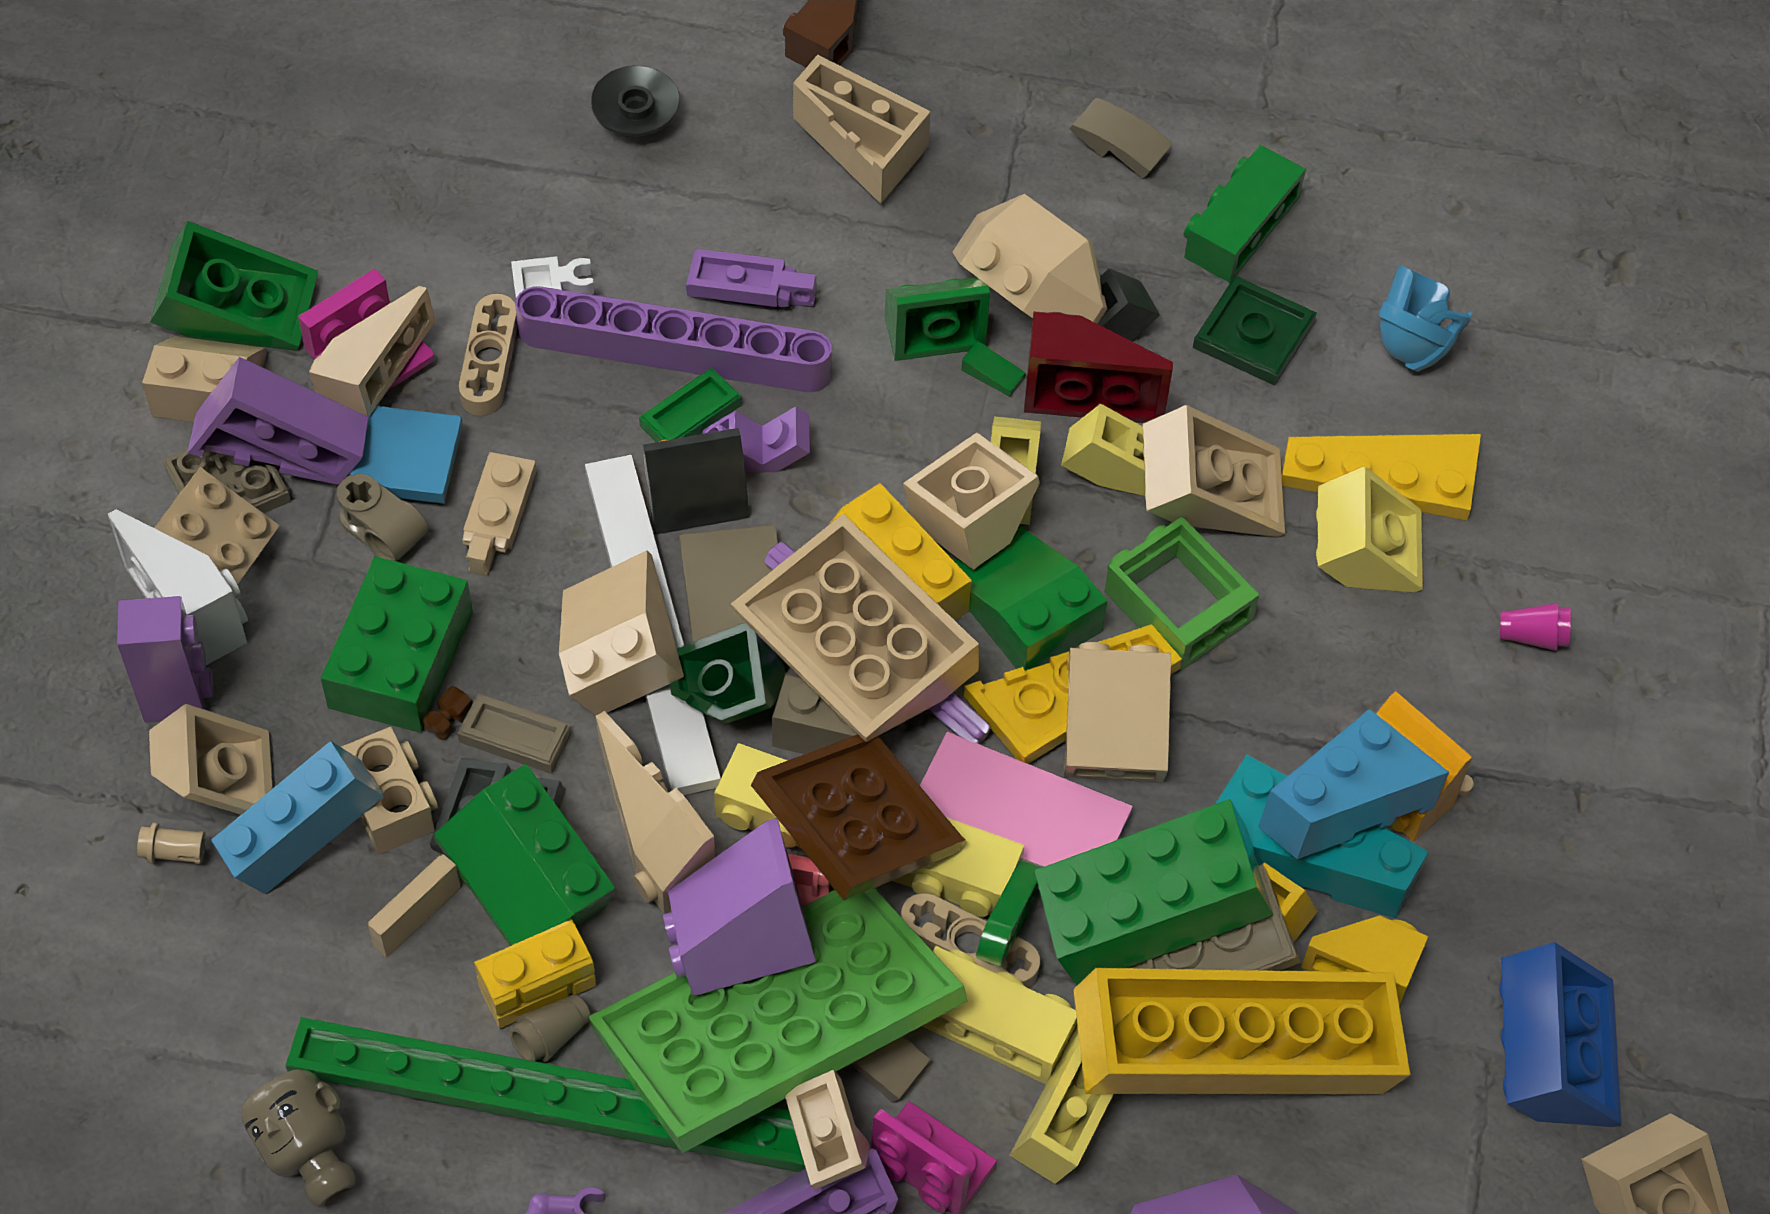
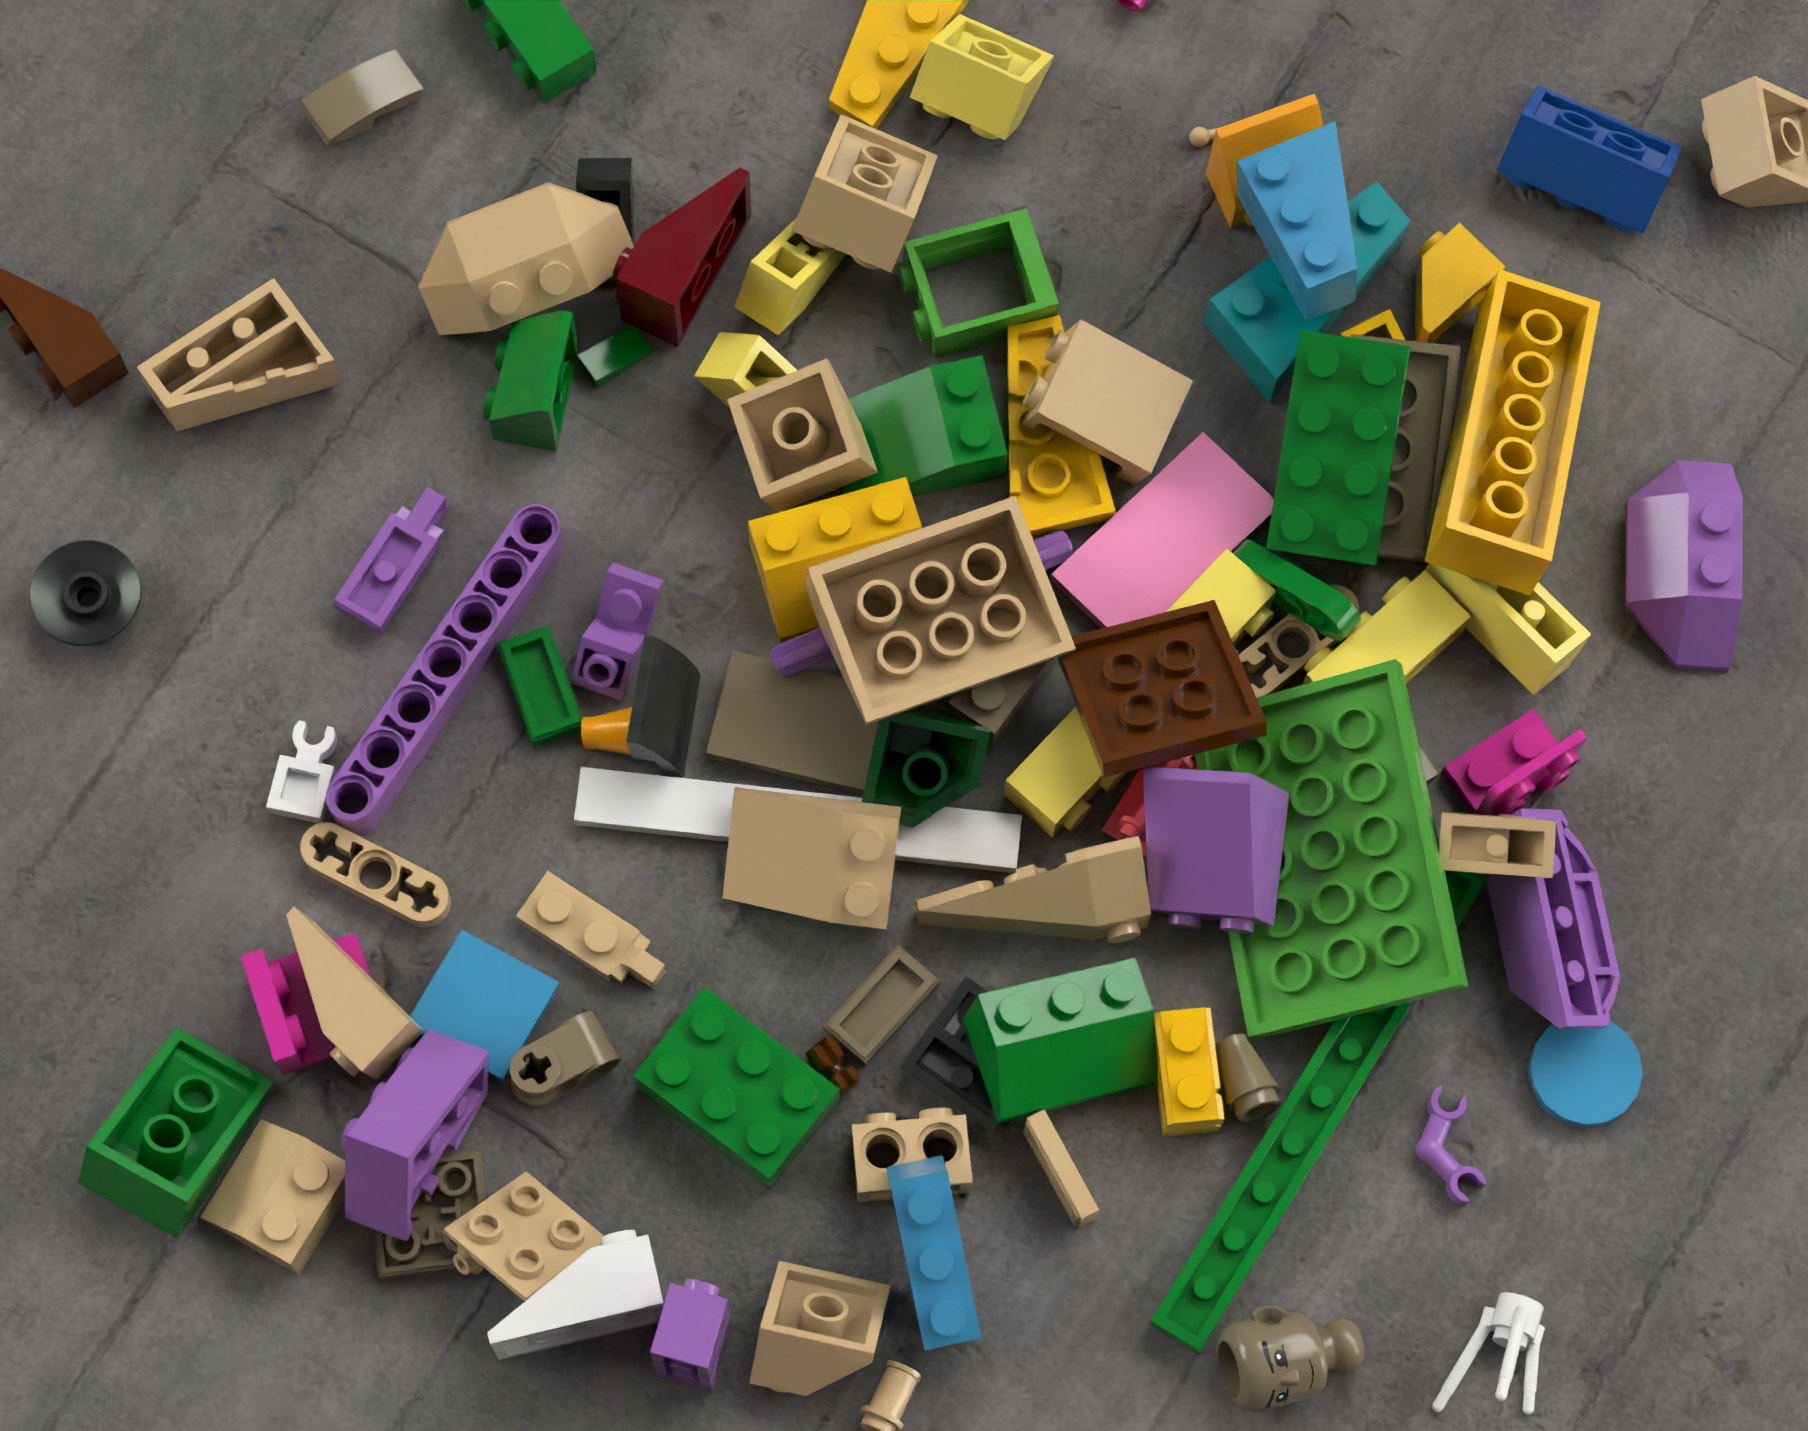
camera: 70 degrees left, 15 degrees up
(1254, 330) = (673, 74): dark green tile -> none

